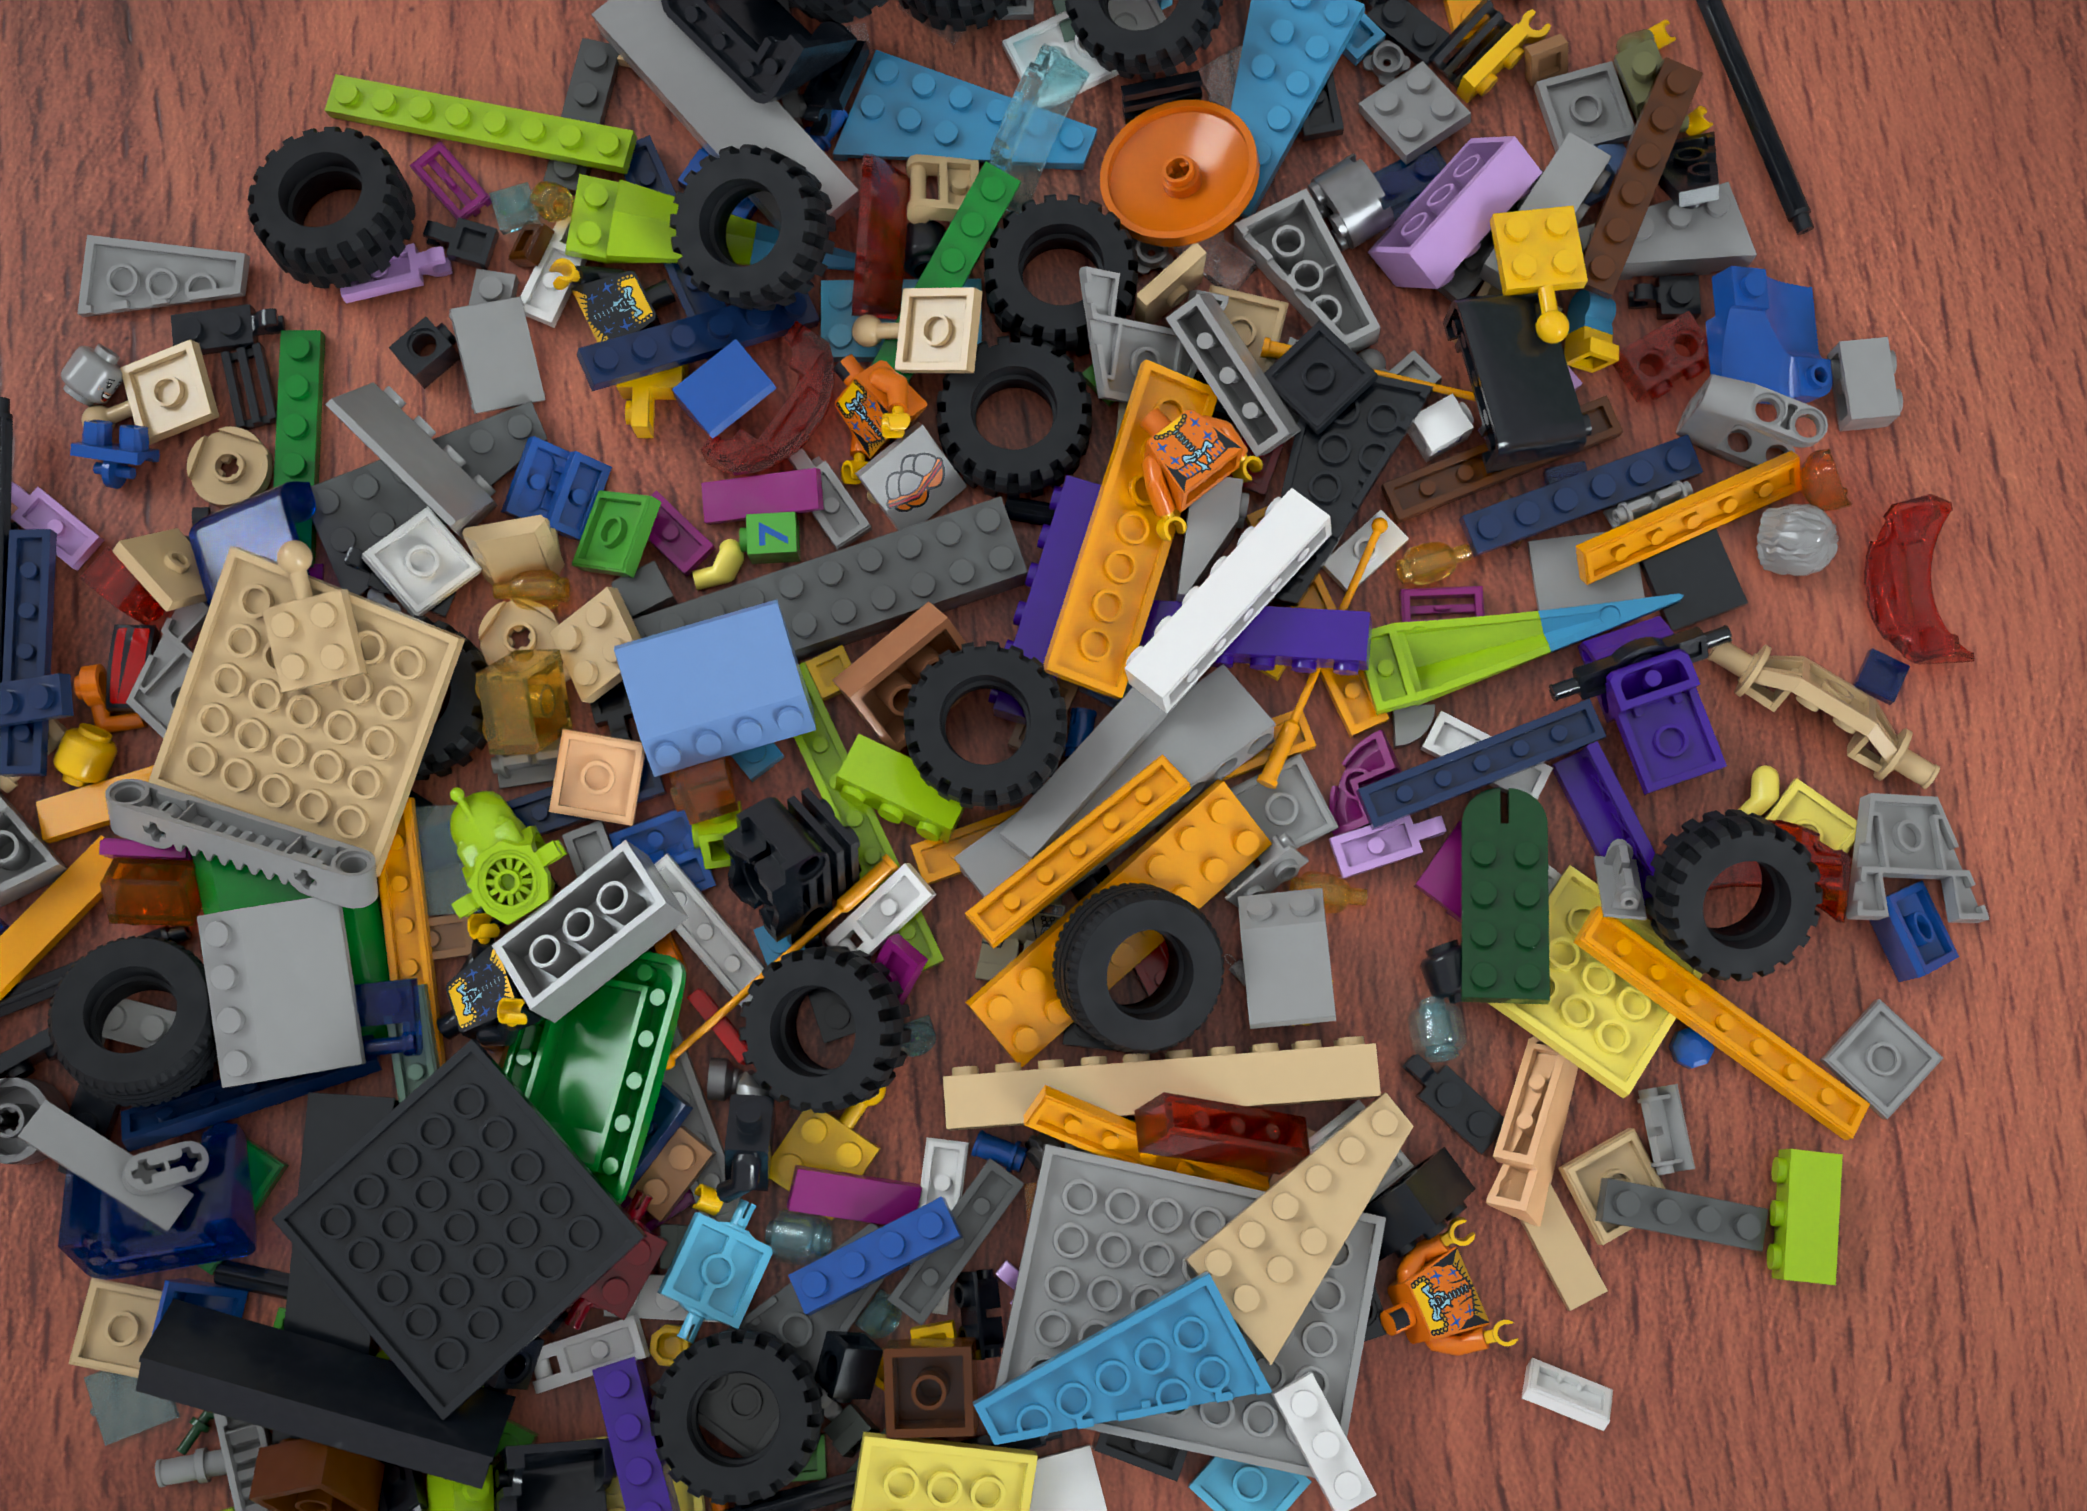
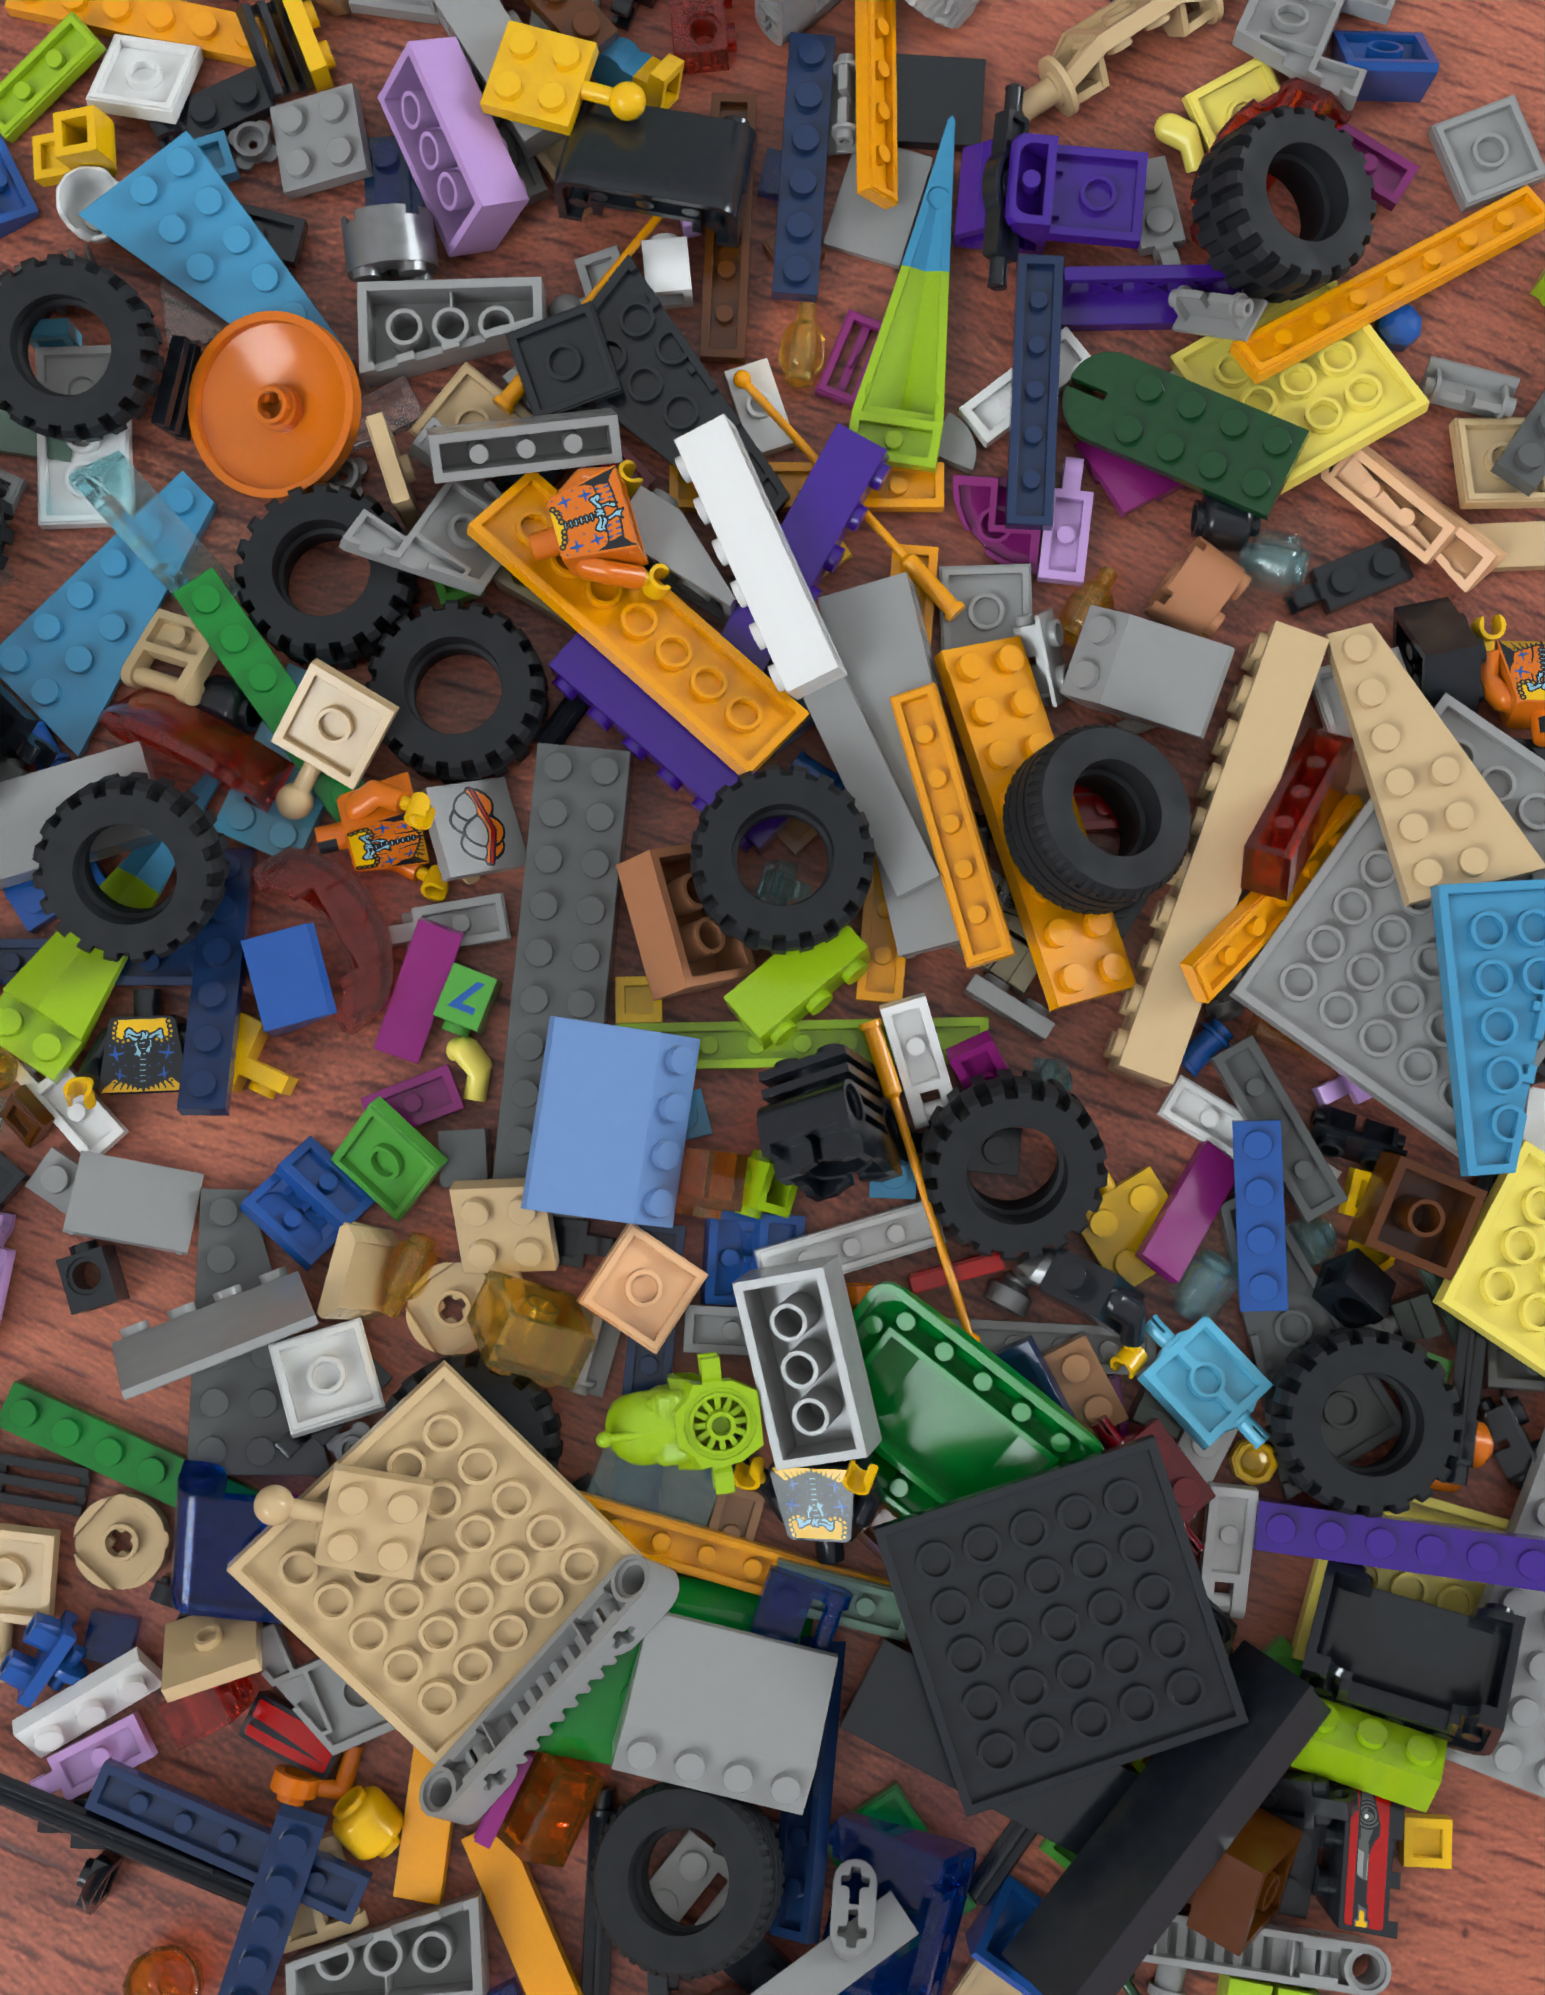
camera: 65 degrees left, 5 degrees up
(92, 497) = (87, 1702): none -> white plate
(152, 495) = (110, 1635): none -> clear blue tile
(964, 956) = (1026, 1016): none -> light grey plate
(975, 742) = (779, 886): none -> clear light blue tile
(1376, 972) = (1197, 590): none -> nougat brick
(1688, 801) = (1161, 221): none -> light grey plate
(1818, 964) = (1389, 170): none -> magenta plate

